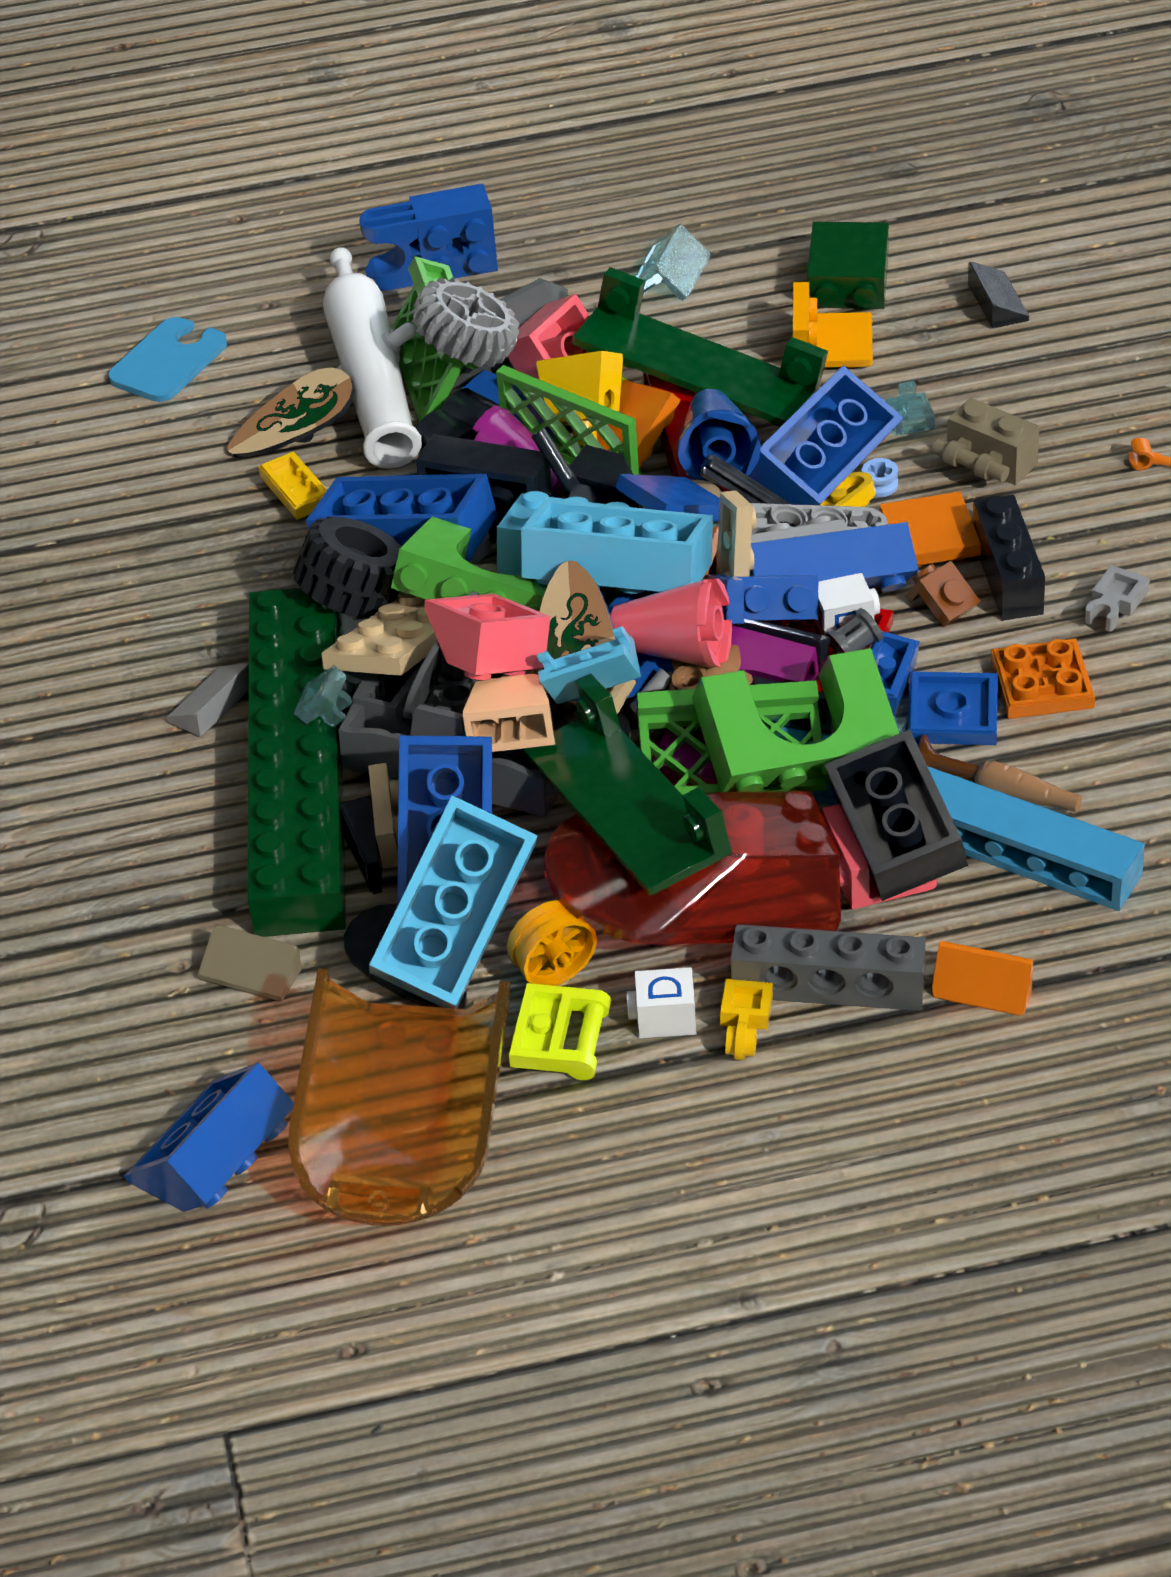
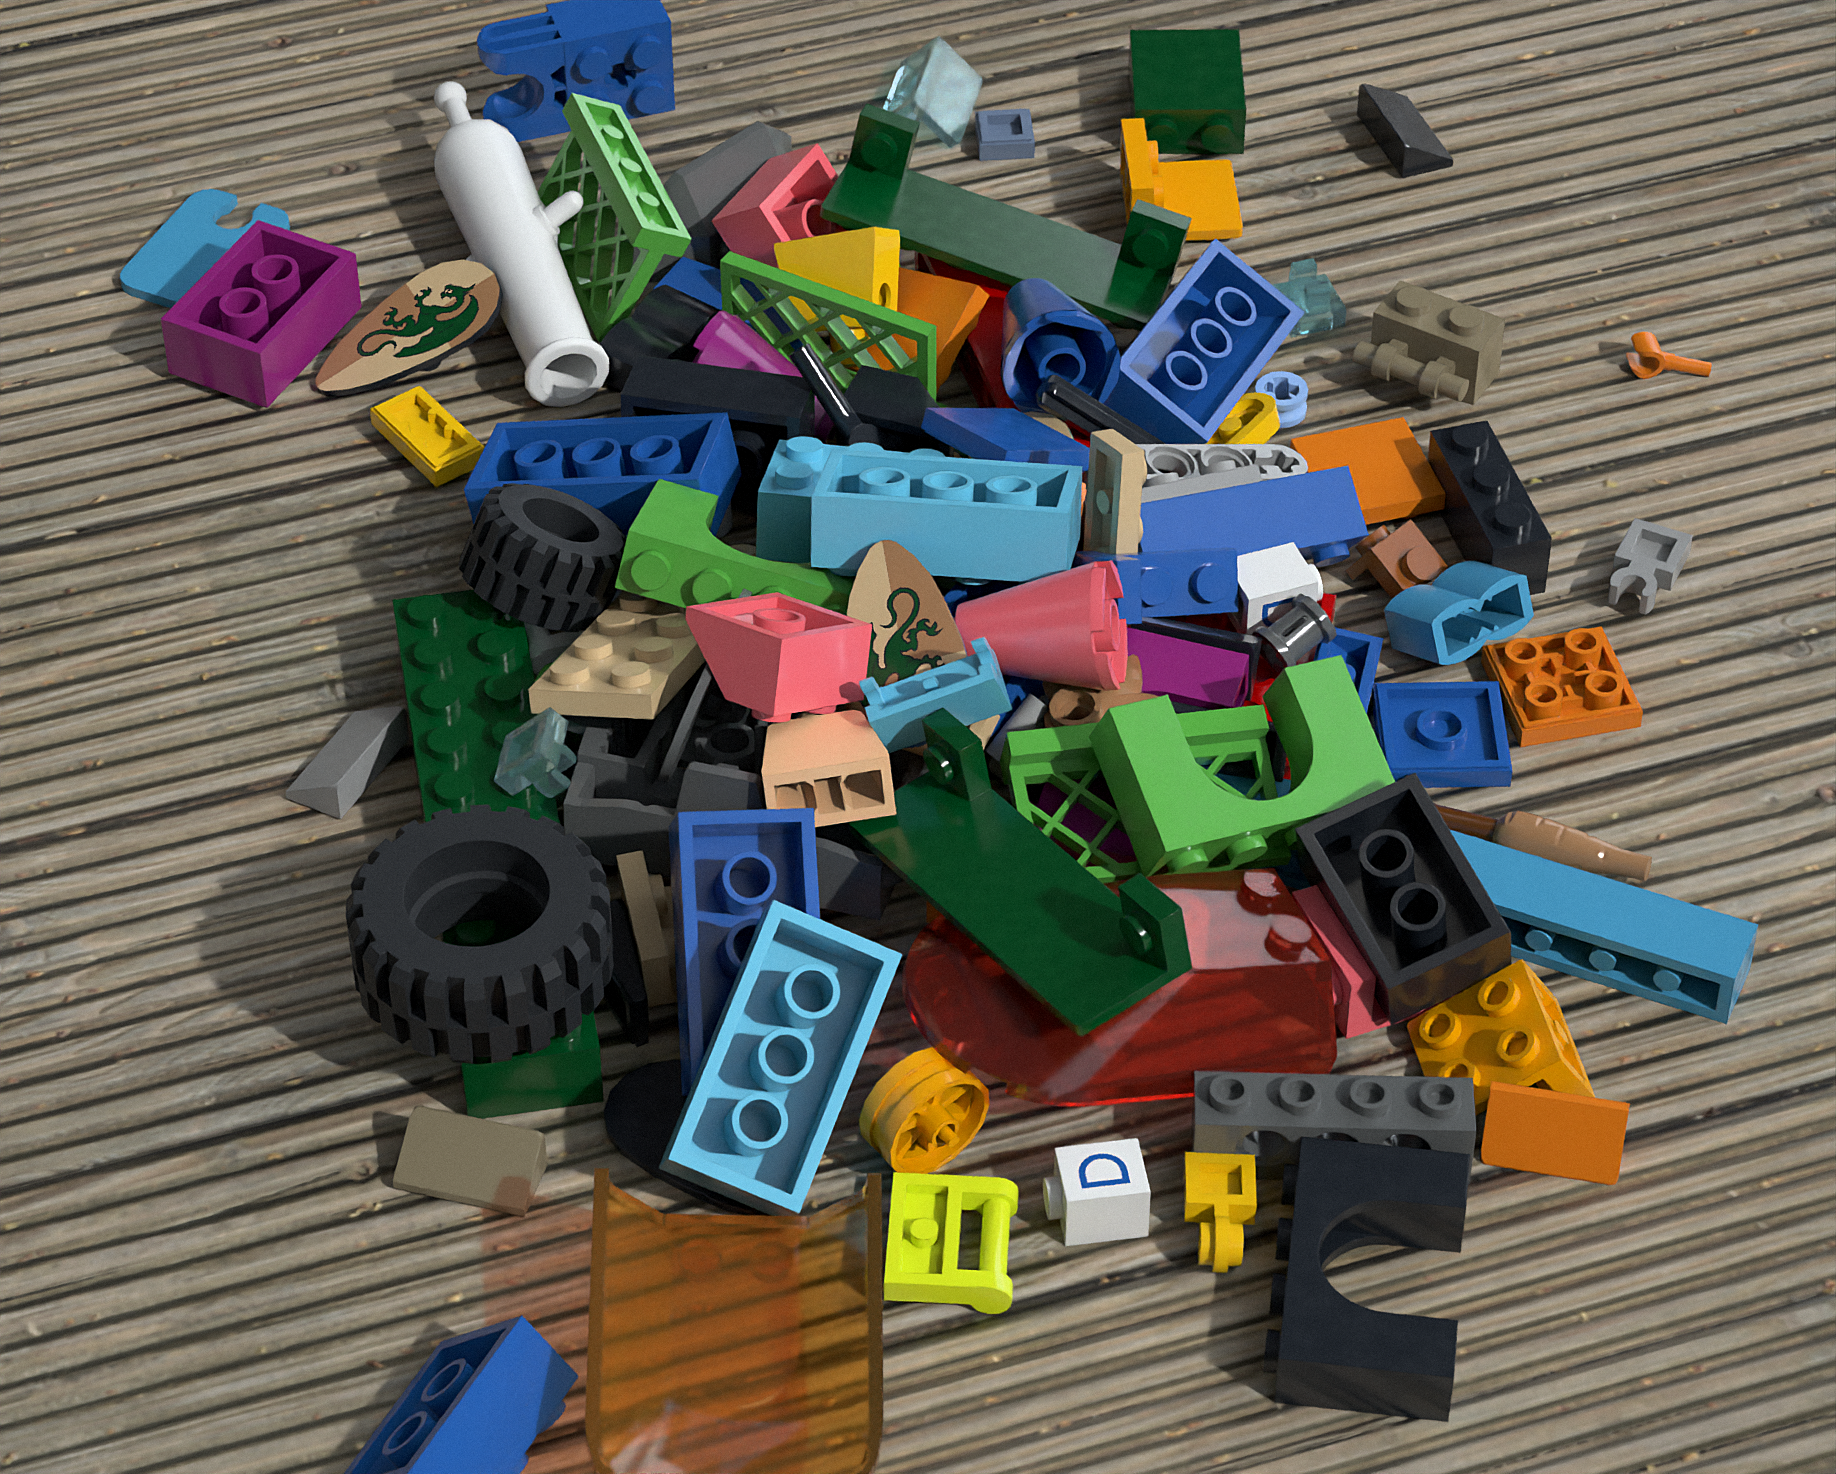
camera: 10 degrees left, 0 degrees up
(194, 400) = (261, 313): none -> magenta brick
(271, 851) = (494, 994): none -> black tyre
(465, 322) = (666, 189): light grey gear -> none
(719, 292) = (1004, 134): none -> sand blue tile
(825, 1017) = (1329, 1346): none -> black arch
(958, 909) = (1503, 1033): none -> light orange bracket
(975, 625) = (1459, 612): none -> dark azure brick

